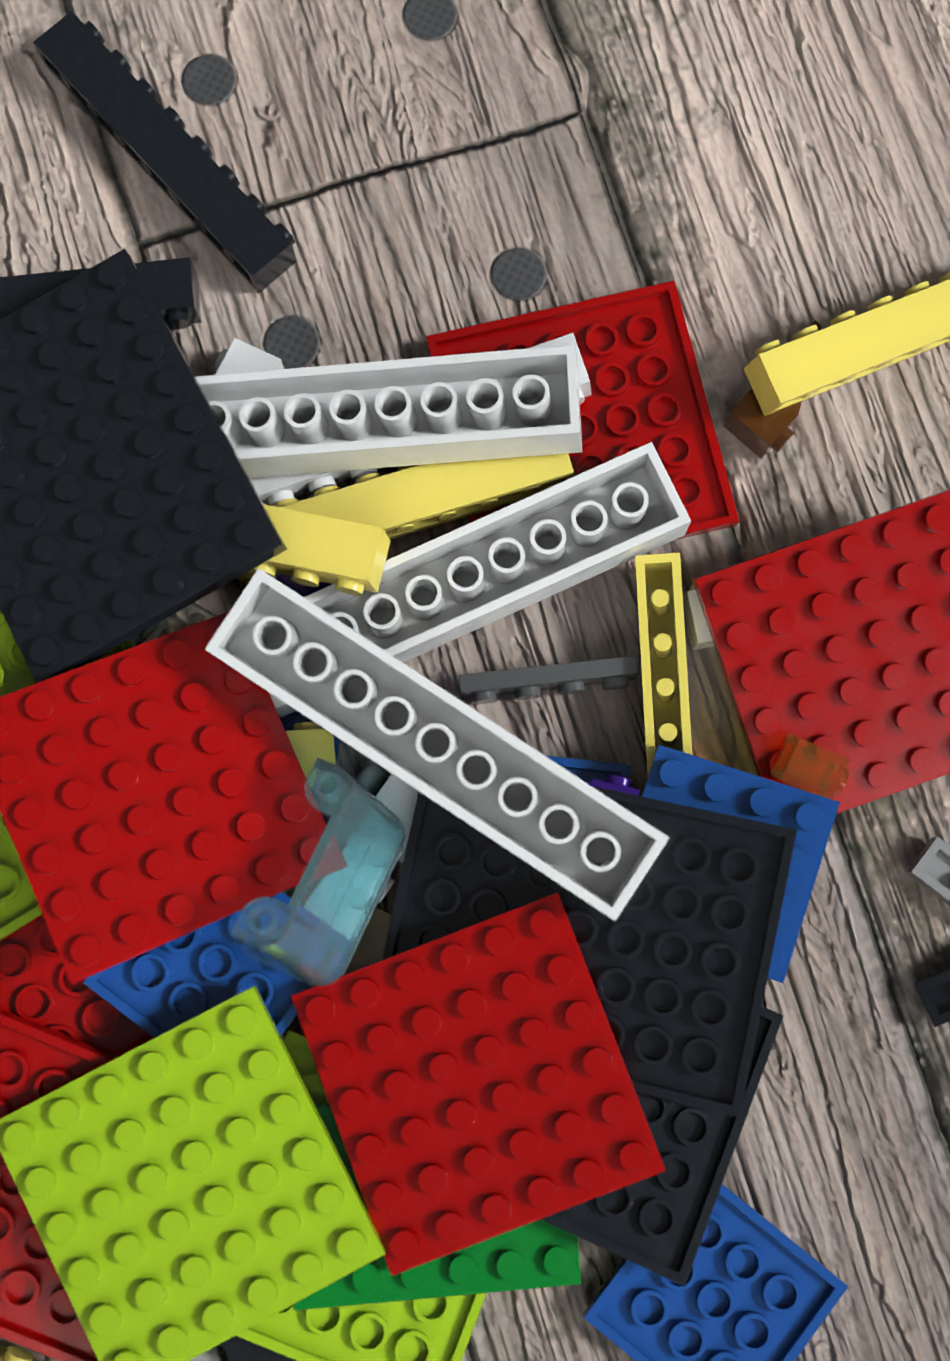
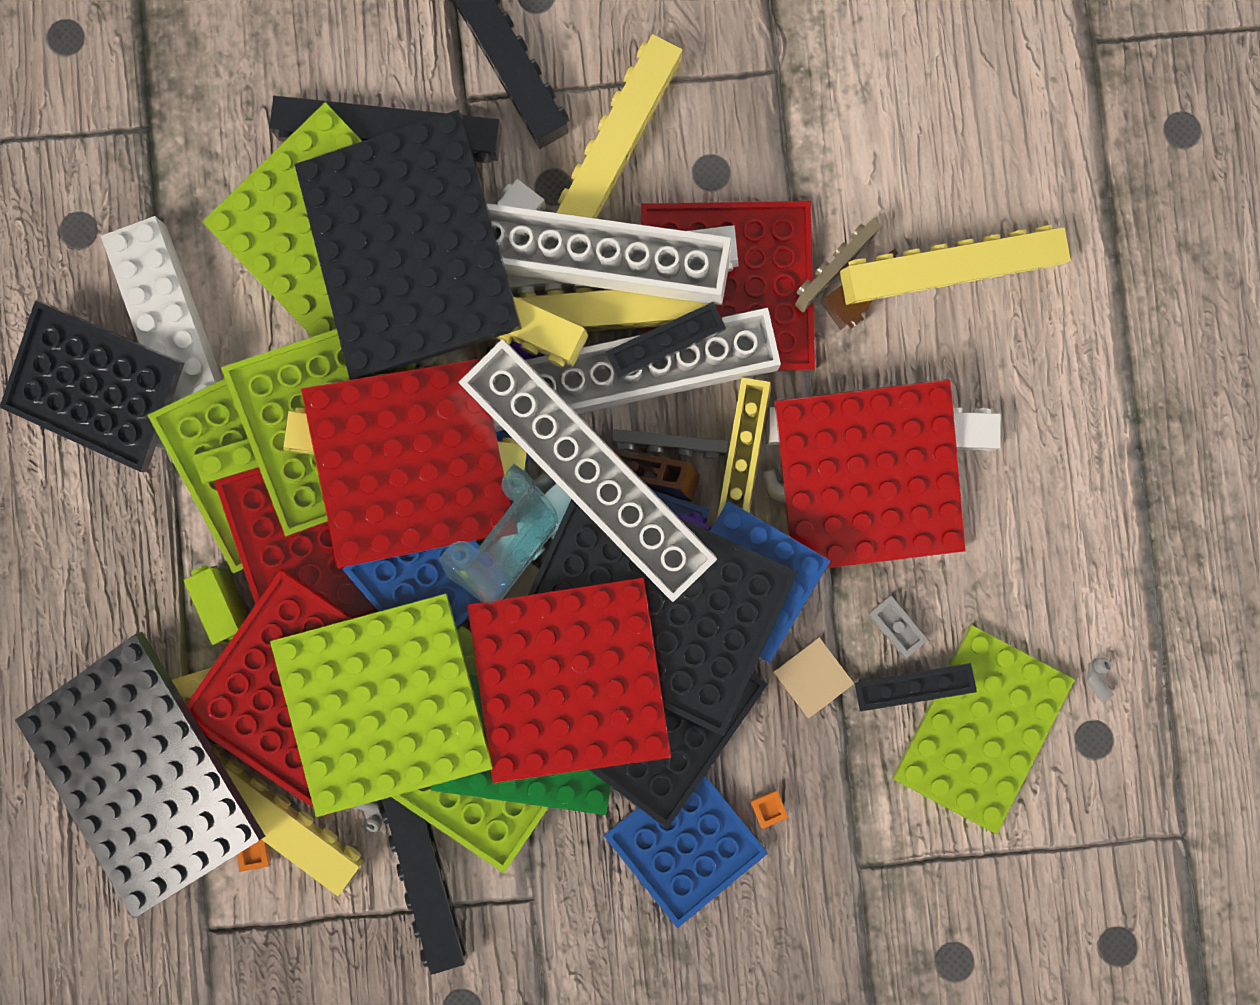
camera: 10 degrees right, 5 degrees up
(375, 233) = (621, 129): none -> light yellow brick
(510, 522) = (665, 340): none -> black plate
(553, 728) = (662, 474): none -> reddish brown slope
(720, 712) = (774, 488): none -> light grey arm
(727, 374) = (829, 272): none -> dark tan plate
(811, 768) = (820, 536): clear orange brick -> none
(831, 1214) = (769, 809): none -> orange plate
(849, 989) = (813, 677): none -> tan tile

